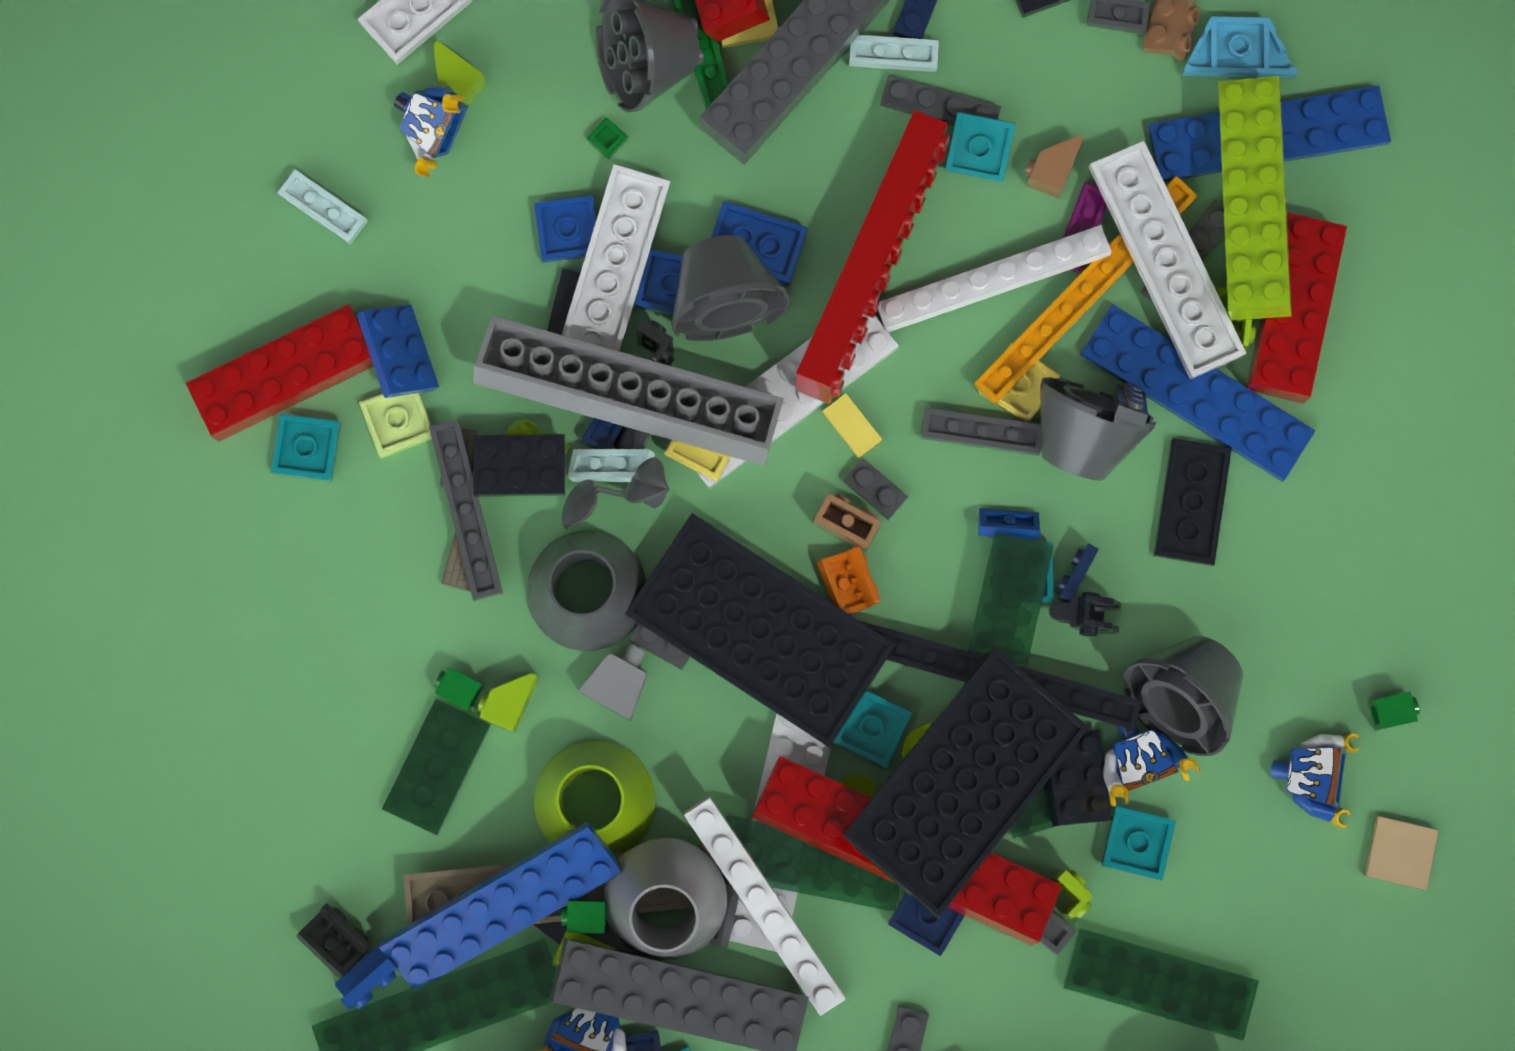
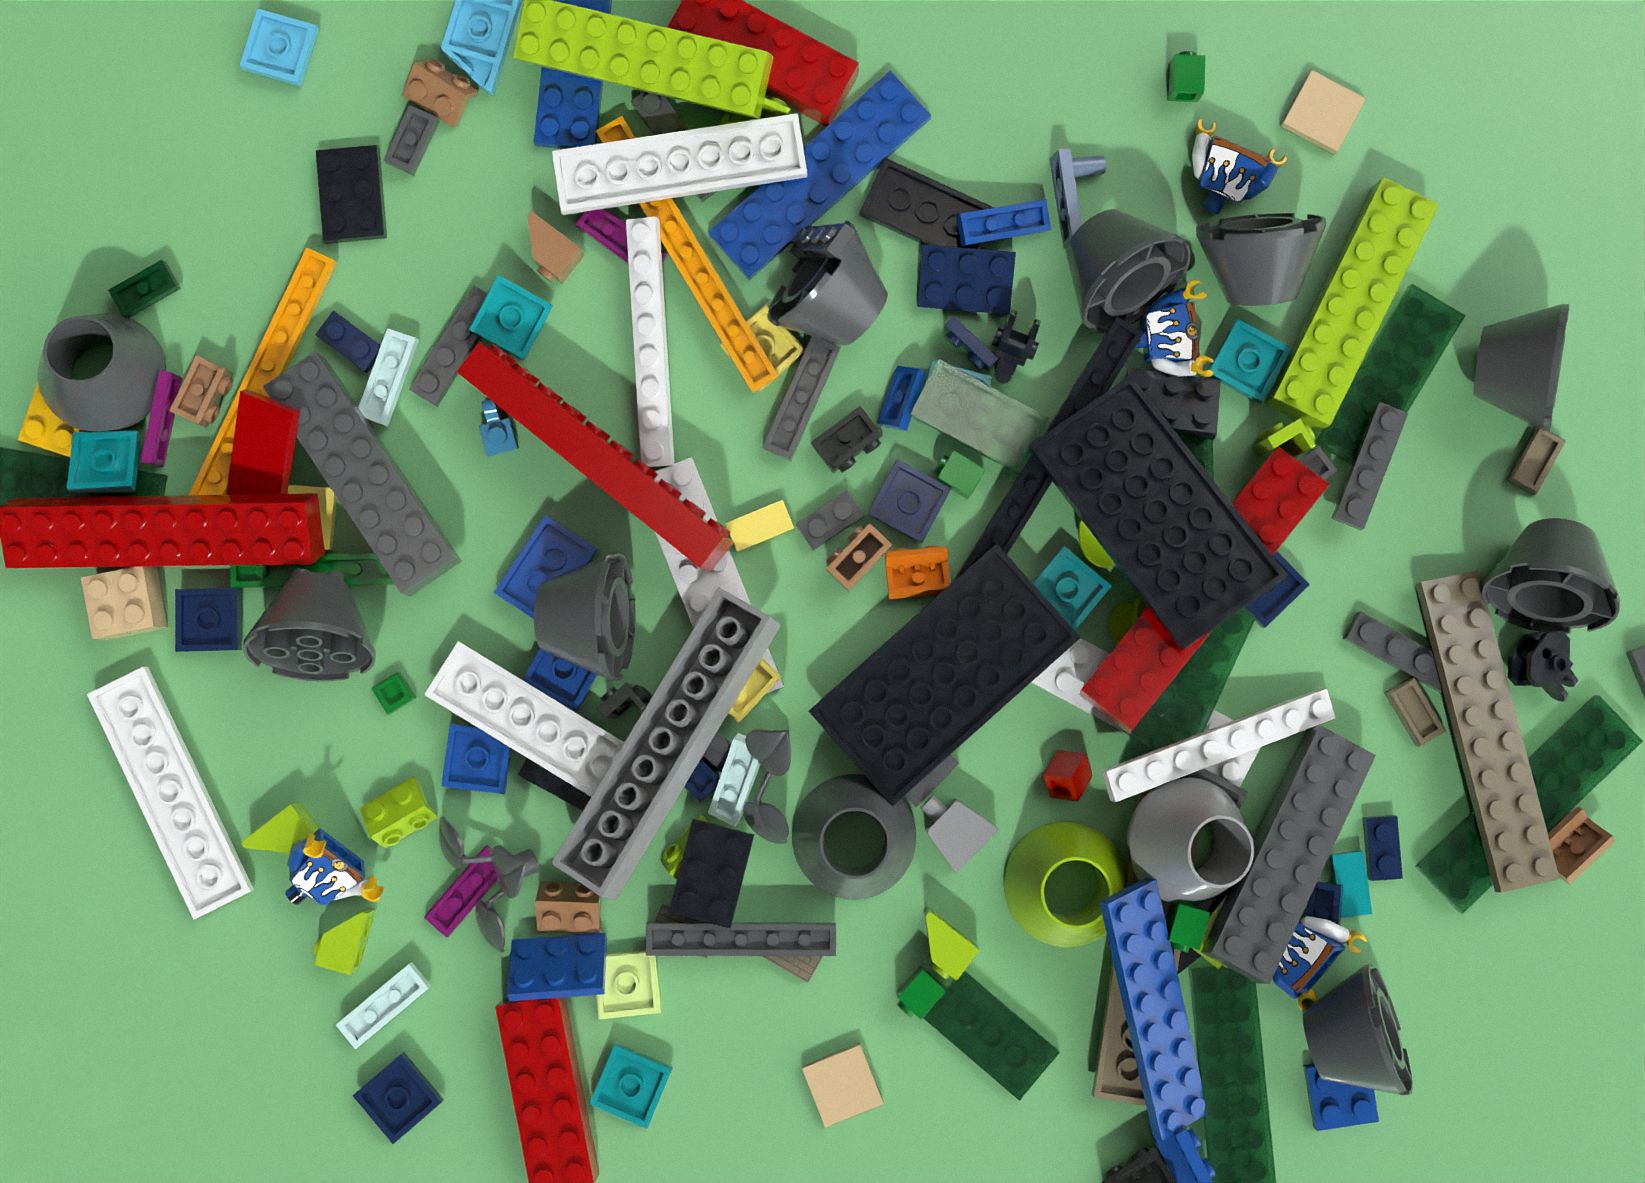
camera: 70 degrees left, 5 degrees up
(243, 242) = (398, 1098): none -> dark blue plate
(354, 641) = (842, 1085): none -> tan tile
(370, 157) = (345, 944): none -> lime slope
(444, 253) = (463, 895): none -> magenta tile
(452, 346) = (567, 908): none -> medium nougat bracket
(474, 283) = (510, 870): none -> dark grey plant
(499, 171) = (397, 813): none -> lime bracket
(697, 774) = (1068, 775): none -> red panel
(871, 166) = (497, 433): none -> dark azure plate
(913, 557) = (909, 501): none -> dark blue plate
(952, 596) = (959, 474): none -> green brick
(954, 484) = (847, 439): none -> pearl dark grey bracket
(1070, 983) = (1369, 466): none -> dark grey plate
(1138, 554) = (966, 279): none -> dark blue plate
(1202, 574) = (1003, 222): none -> blue plate
(1222, 926) = (1352, 304): none -> lime brick
(1240, 821) = (1261, 255): none -> dark grey cone
(1269, 618) = (1064, 171): none -> sand blue piece

